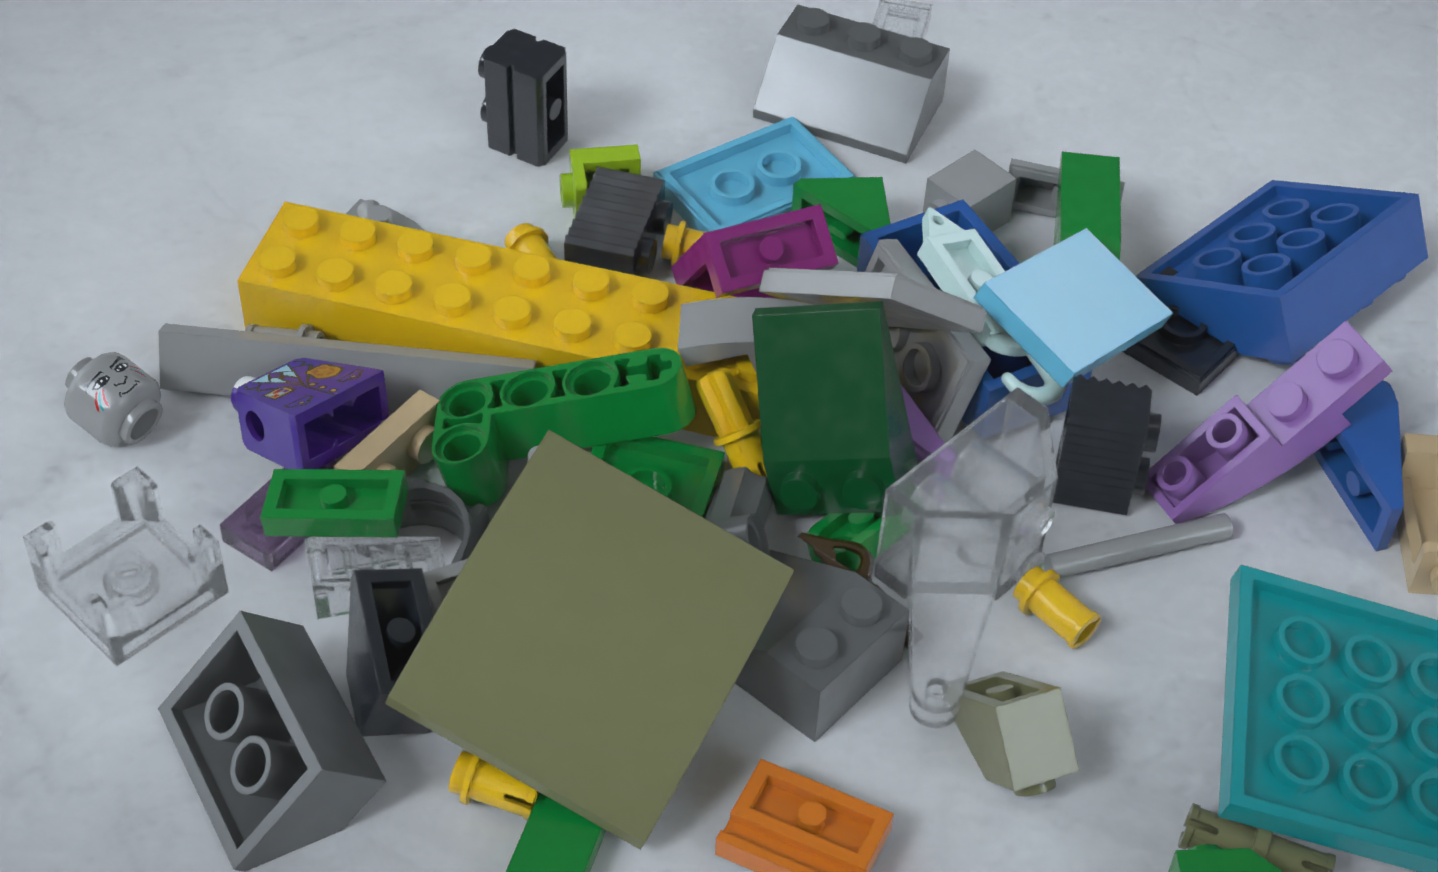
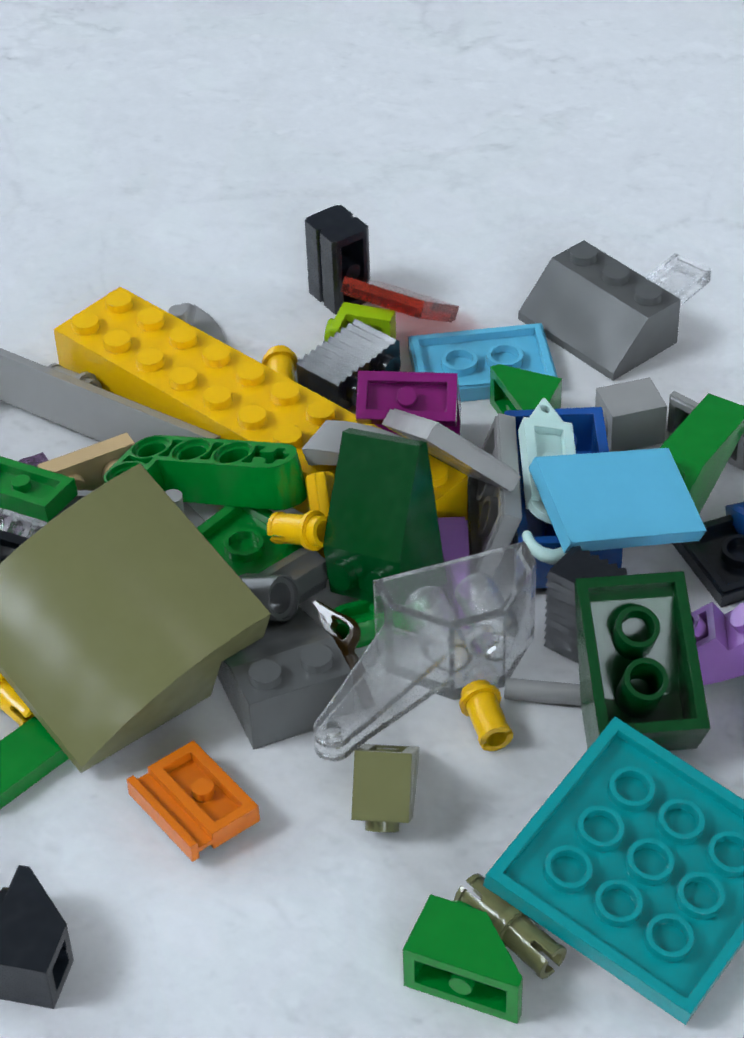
camera: 30 degrees right, 5 degrees down
(309, 411) = (42, 425): dark purple torso -> none
(624, 129) = (399, 299): none -> clear red tile
(721, 450) = (298, 529): none -> yellow pin
(1212, 492) = (640, 658): none -> dark green slope

